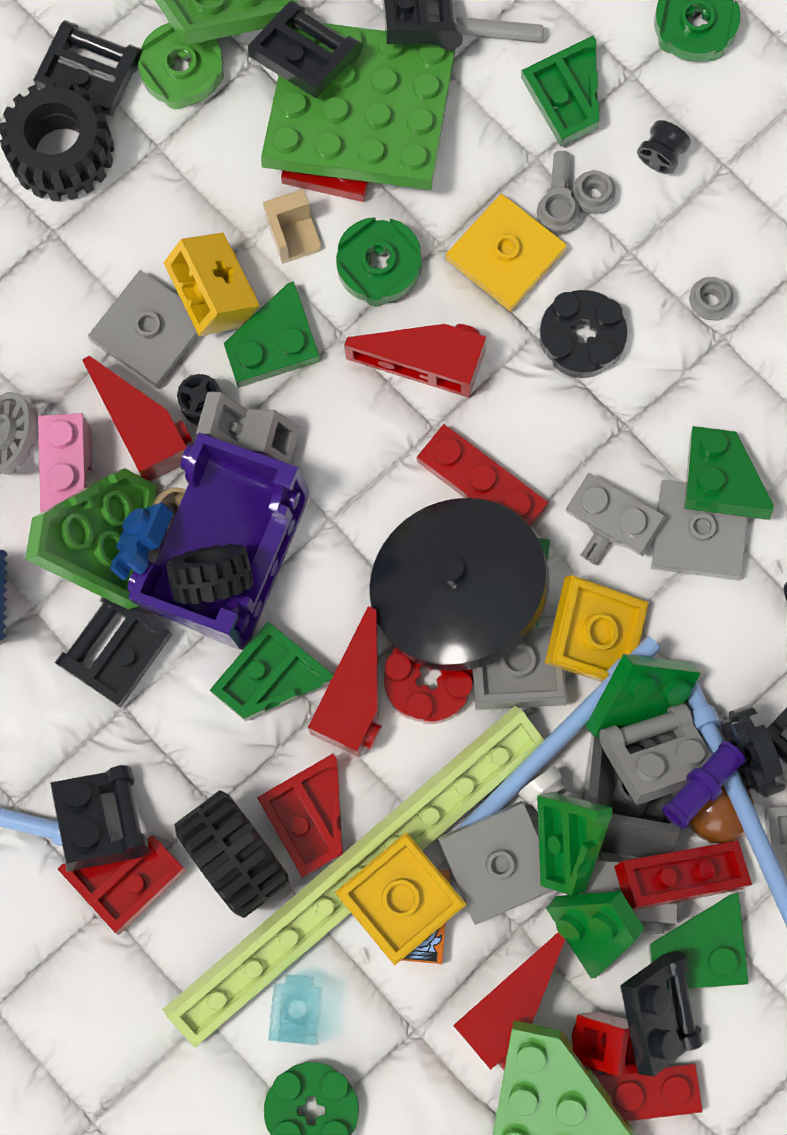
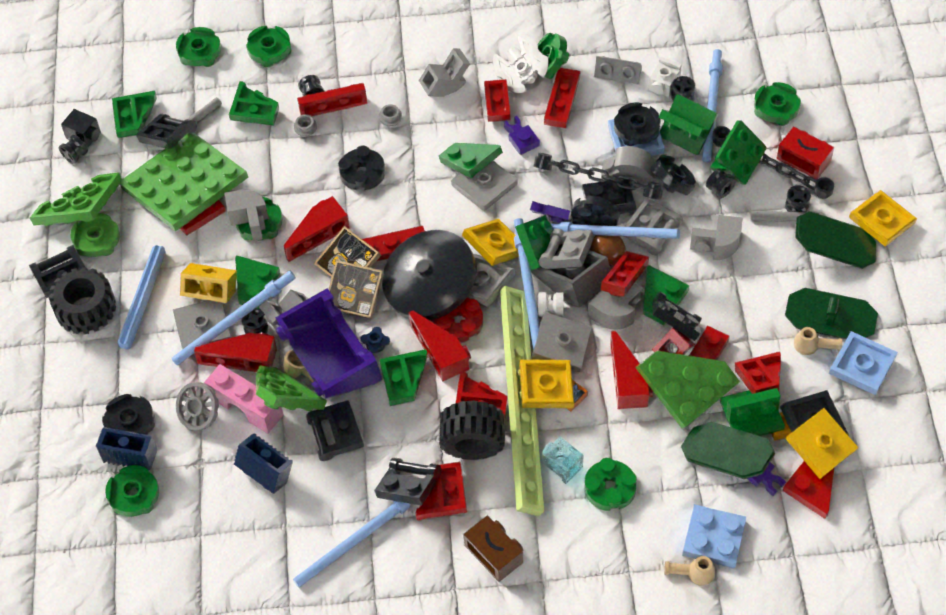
camera: 55 degrees left, 20 degrees down
(84, 1019) = (493, 547): none -> reddish brown brick
(132, 210) = (141, 297): none -> light blue axle
(141, 533) = (298, 374): blue plate -> none
(209, 573) = (341, 355): black tyre -> none
(232, 391) = (271, 289): none -> light blue bar
(292, 226) = (209, 242): tan panel -> none
(299, 58) = (141, 179): black plate -> none
(303, 600) = (375, 346): none -> dark blue plate
(357, 493) = (355, 288): none -> tile
(370, 236) = (246, 207): none -> light grey brick
(402, 442) = (349, 249): none -> tile
(506, 252) = (300, 173): yellow plate -> none
(558, 209) = (299, 141): light grey plate -> none
(569, 840) = (576, 297): green wing -> none
(595, 927) = (621, 313): green wing -> none
(613, 518) = (451, 207): light grey plate -> none
(667, 193) = (332, 100): none -> red plate
(703, 784) = (594, 235): dark purple pin -> none
(721, 684) = (556, 214): none -> dark purple plate

